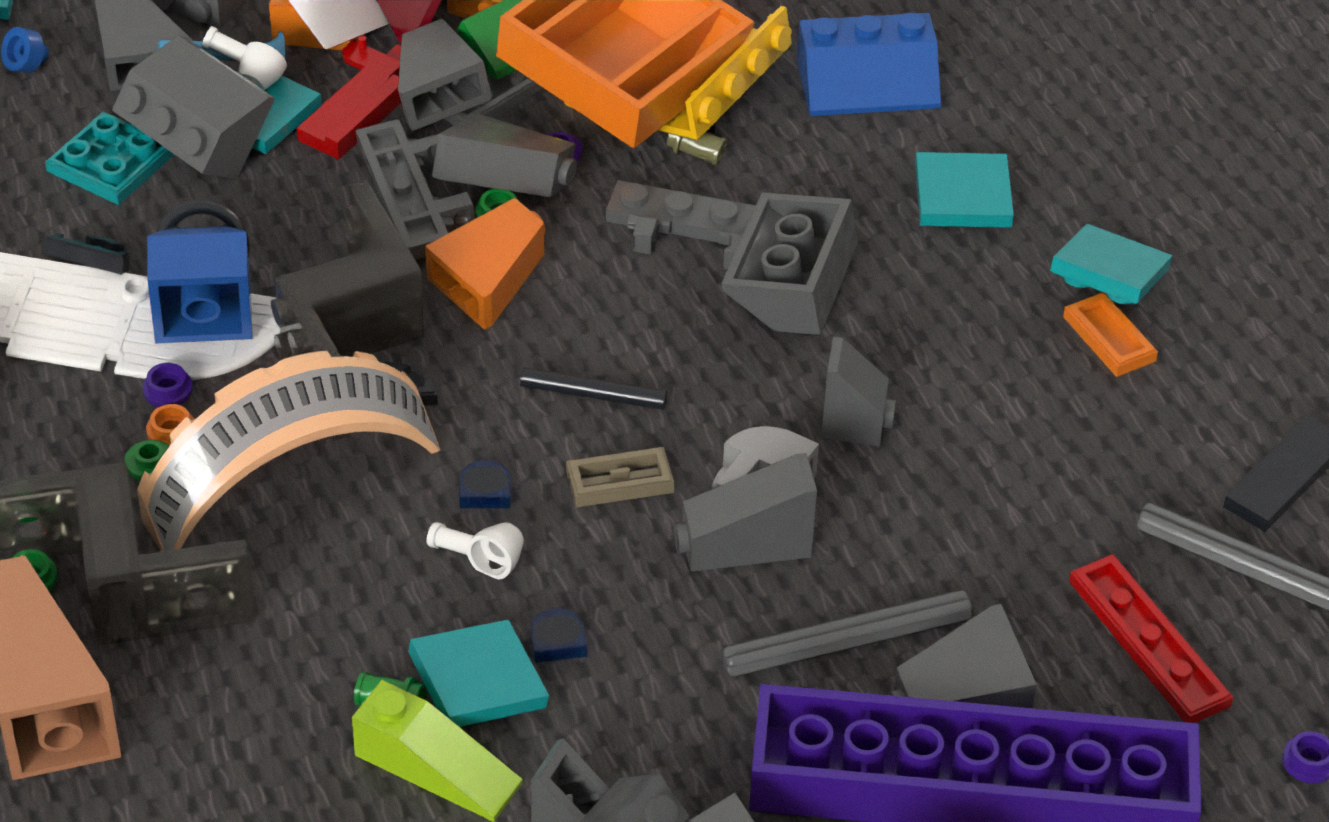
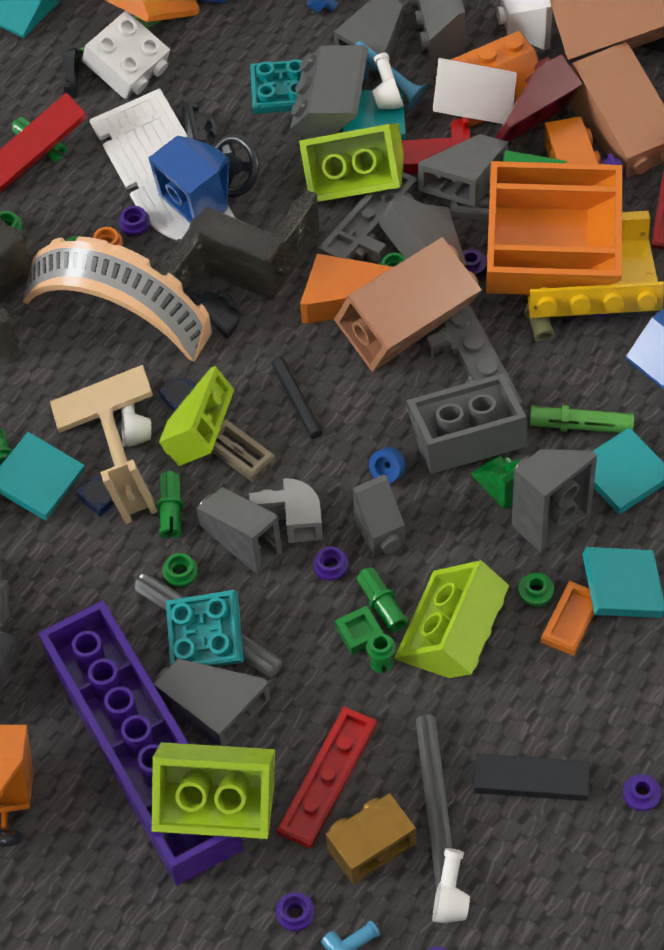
camera: 60 degrees right, 10 degrees up
(322, 148) = (353, 162): none -> lime slope
(424, 551) = (100, 401): none -> tan piece
(556, 484) = (197, 421): none -> lime slope
(592, 212) = (406, 303): none -> nougat slope
(645, 575) = (170, 505): none -> green axle
(747, 605) = (176, 562): none -> green plate
(777, 359) = (387, 462): none -> blue tile
(859, 471) = (328, 555): none -> dark purple plate
(866, 630) = (205, 629): none -> teal tile
(875, 175) = (580, 419): none -> bright green pin
(889, 282) = (498, 479): none -> green slope
(953, 464) = (382, 600): none -> green axle
(974, 239) = (552, 494): none -> dark grey slope
(980, 503) = (357, 629): none -> green plate
(1035, 490) = (381, 649): none -> green pin
(1036, 420) = (453, 620): none -> lime slope
(1052, 339) = (533, 597): none -> green plate
(1139, 705) = (212, 790): none -> lime slope
(1274, 633) = (370, 837): none -> pearl gold brick

